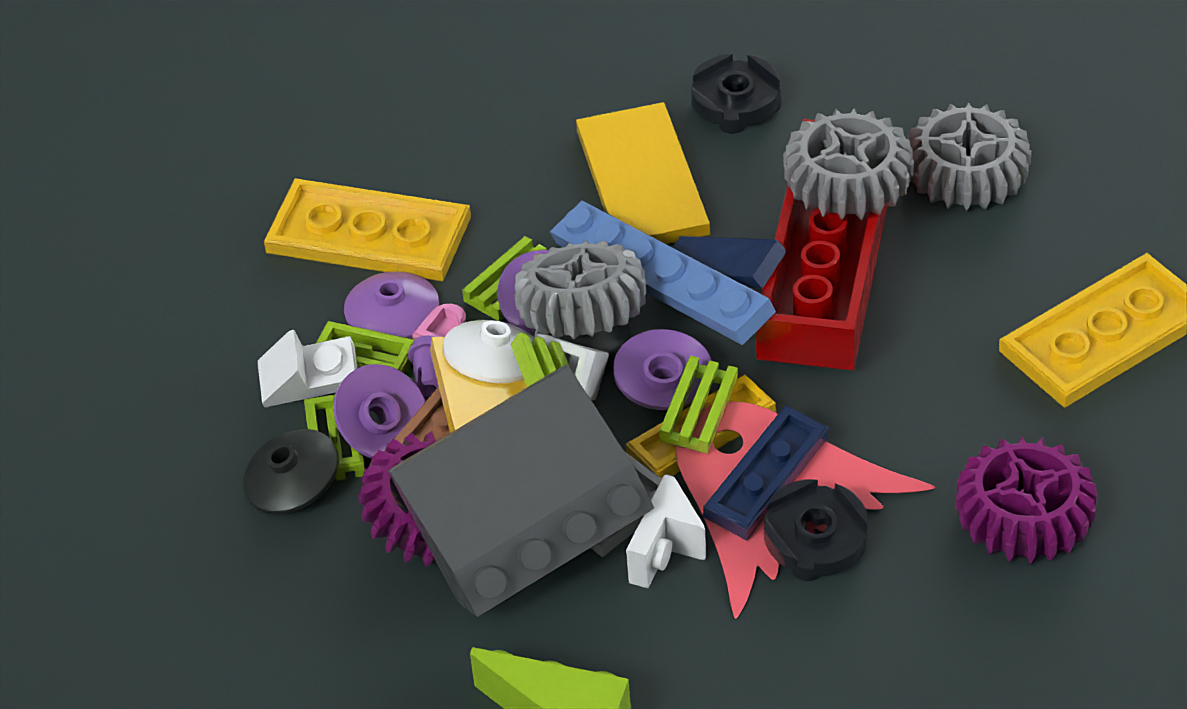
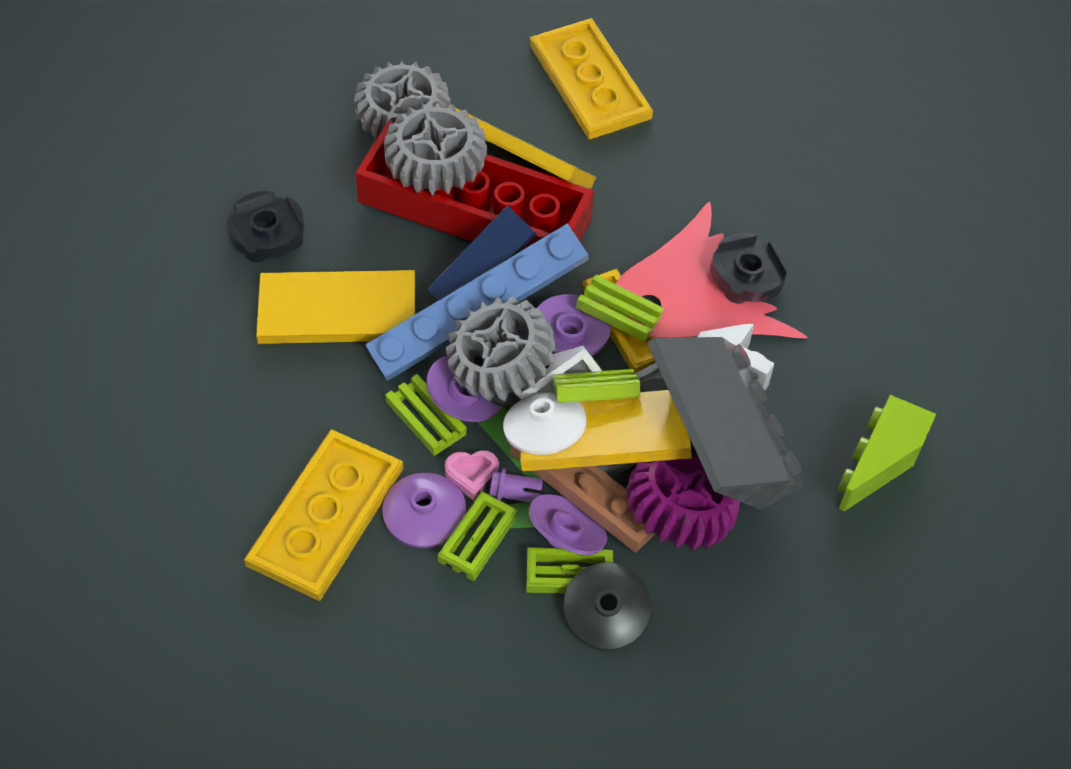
camera: 85 degrees left, 10 degrees up
(303, 372) = (499, 577): white slope -> none
(765, 469) = (688, 285): dark blue tile -> none
(921, 266) = (535, 155): none -> yellow tile
(1026, 499) = (746, 150): magenta gear -> none

